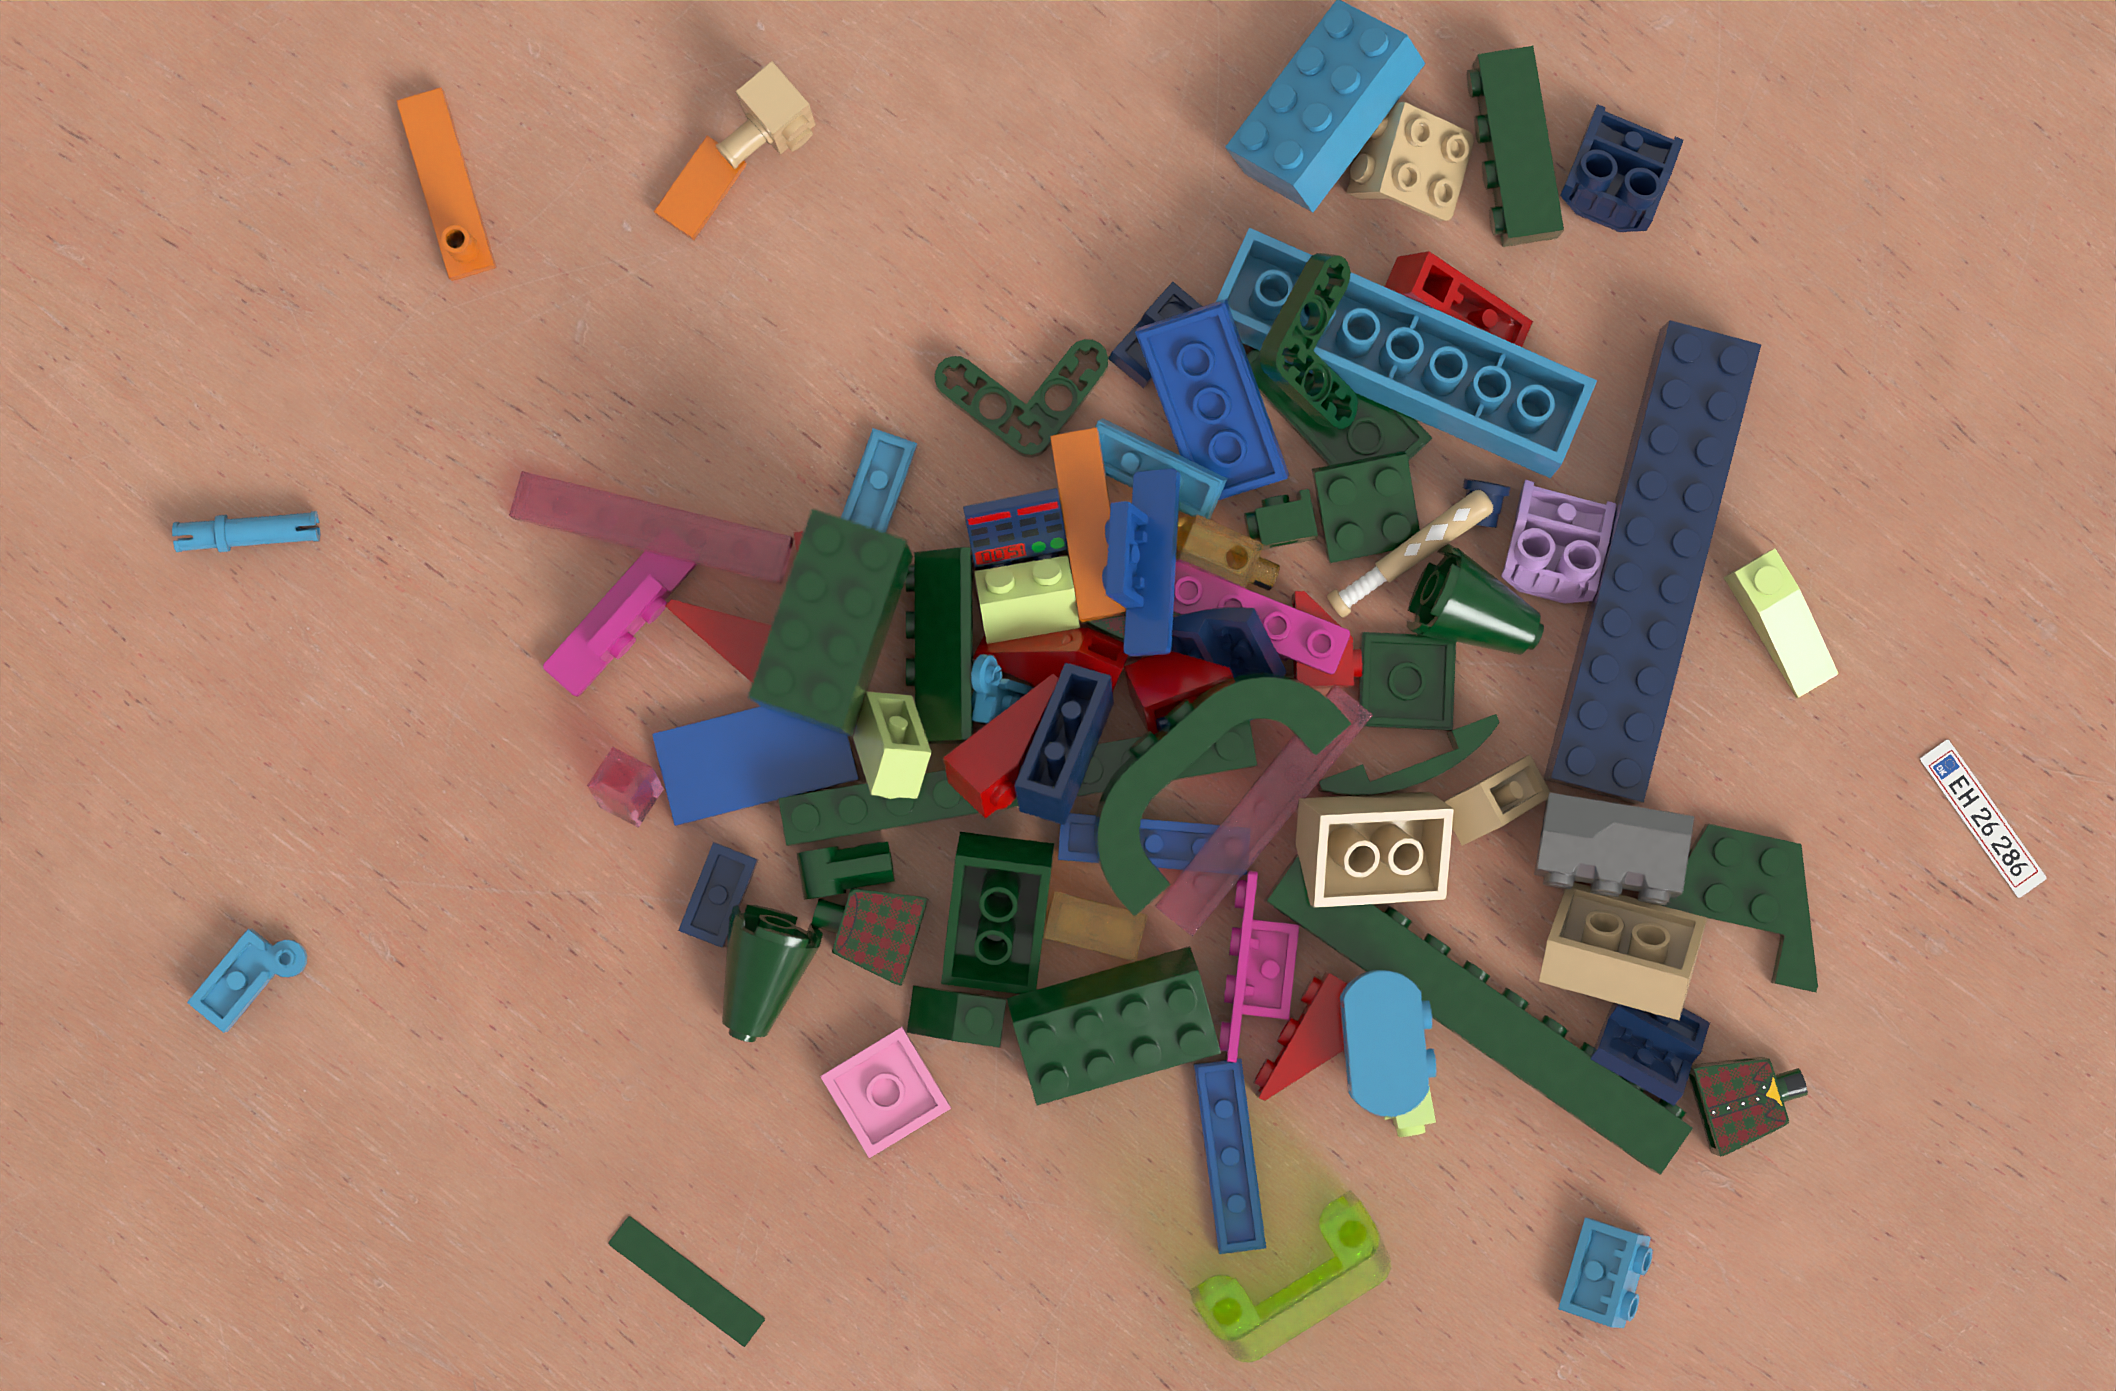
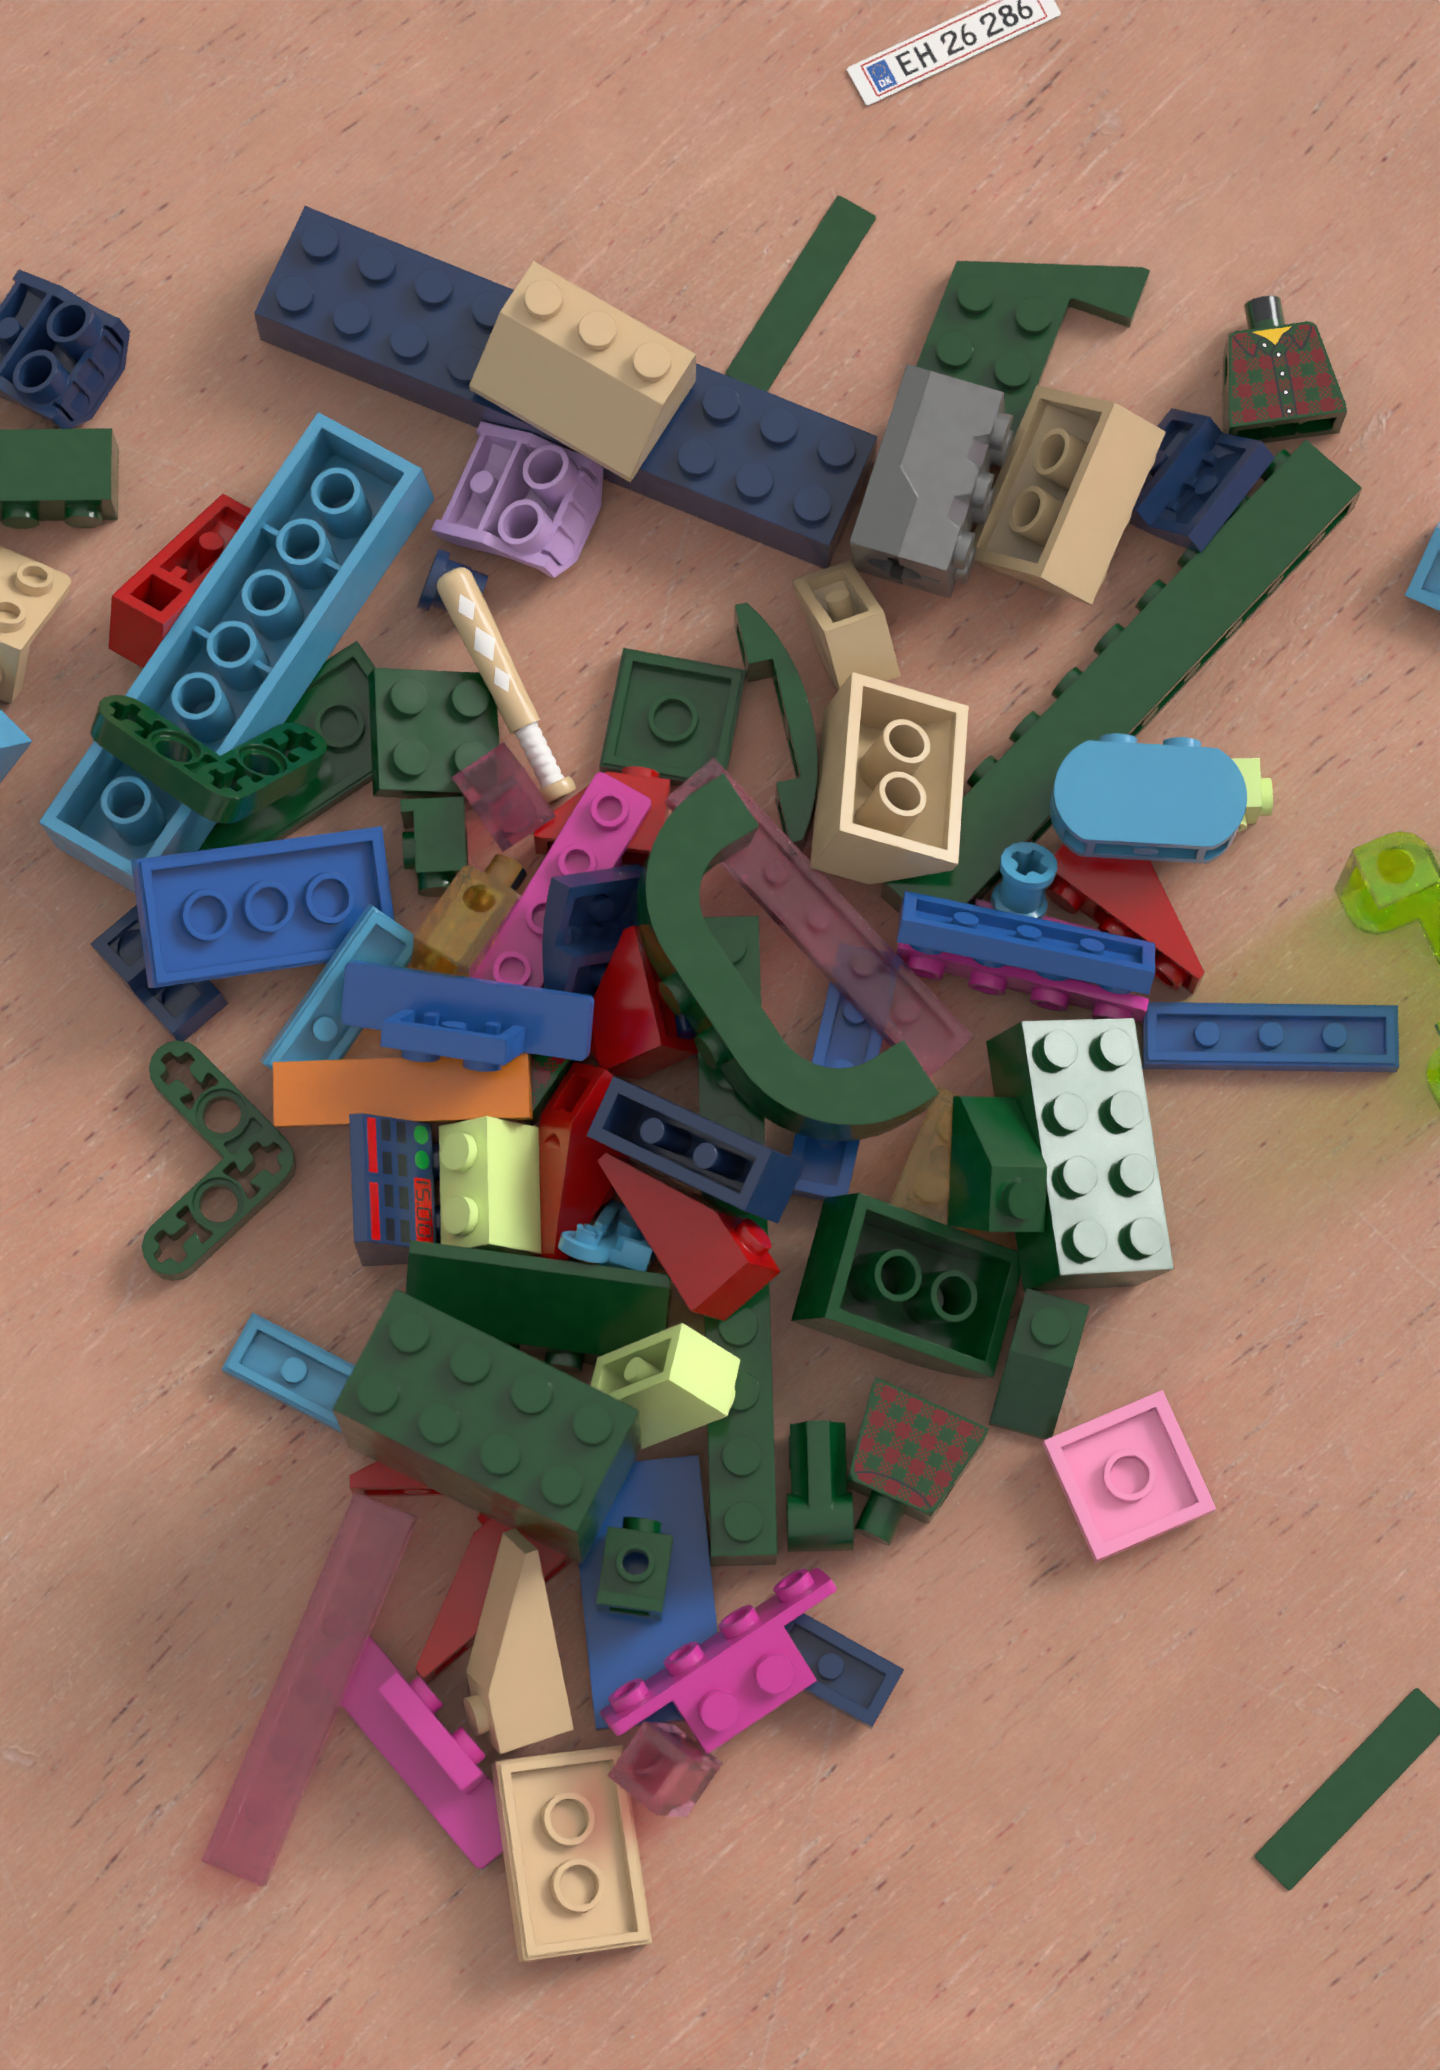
camera: 80 degrees left, 10 degrees down
(560, 728) = (570, 1854): none -> tan tile
(683, 669) = (515, 1656): none -> tan slope
(700, 825) = (732, 1674): none -> dark pink bracket
(745, 751) = (628, 1593): none -> dark green brick
(763, 967) = (940, 1615): dark green cone -> none
(1087, 965) = (995, 1168): none -> dark green slope
(1263, 966) = (1026, 942): none -> blue plate
(1315, 958) = (1026, 874): none -> dark azure bush
(1321, 564) = (503, 797): none -> clear pink brick
(1471, 607) = (586, 620): dark green cone -> none
(1653, 573) = (583, 371): none -> tan slope
(1758, 730) = (801, 294): none -> dark green sticker
(1782, 621) = (663, 240): yellowish green slope -> none

